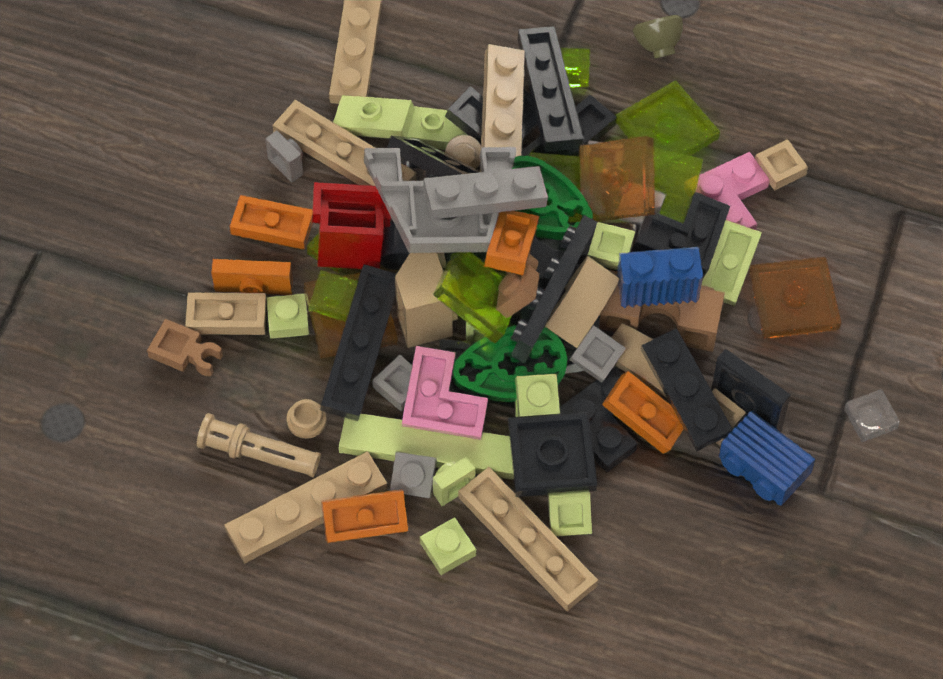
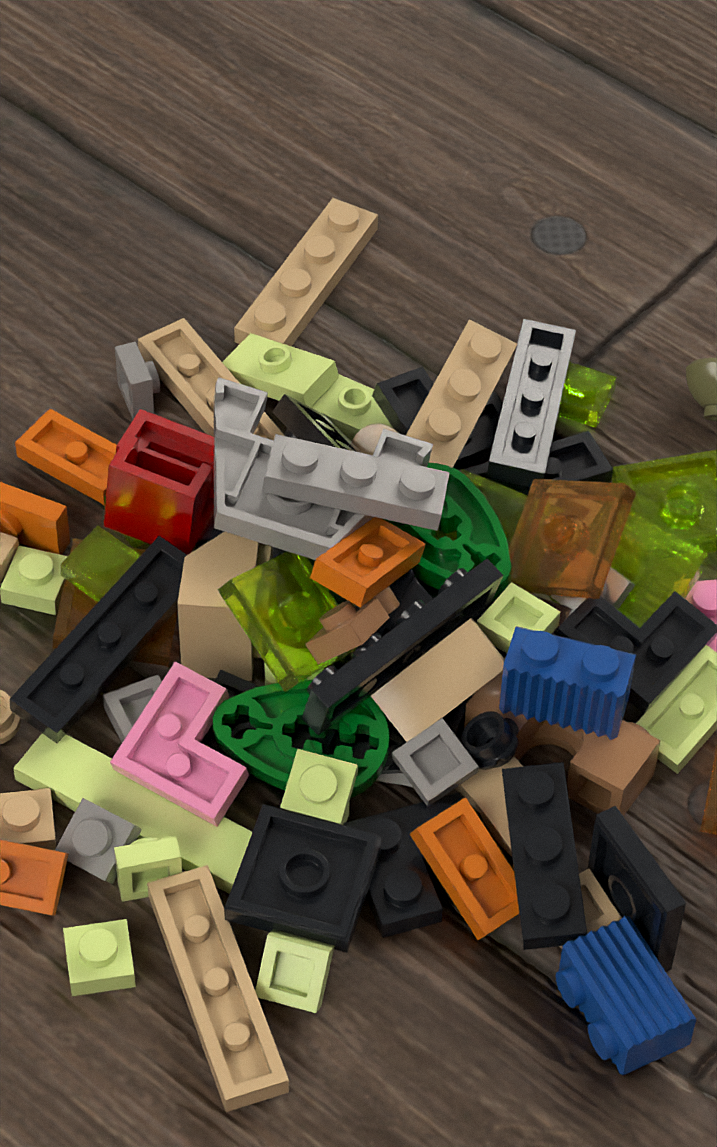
camera: 20 degrees right, 10 degrees down
(620, 322) = (490, 739): none -> black plate

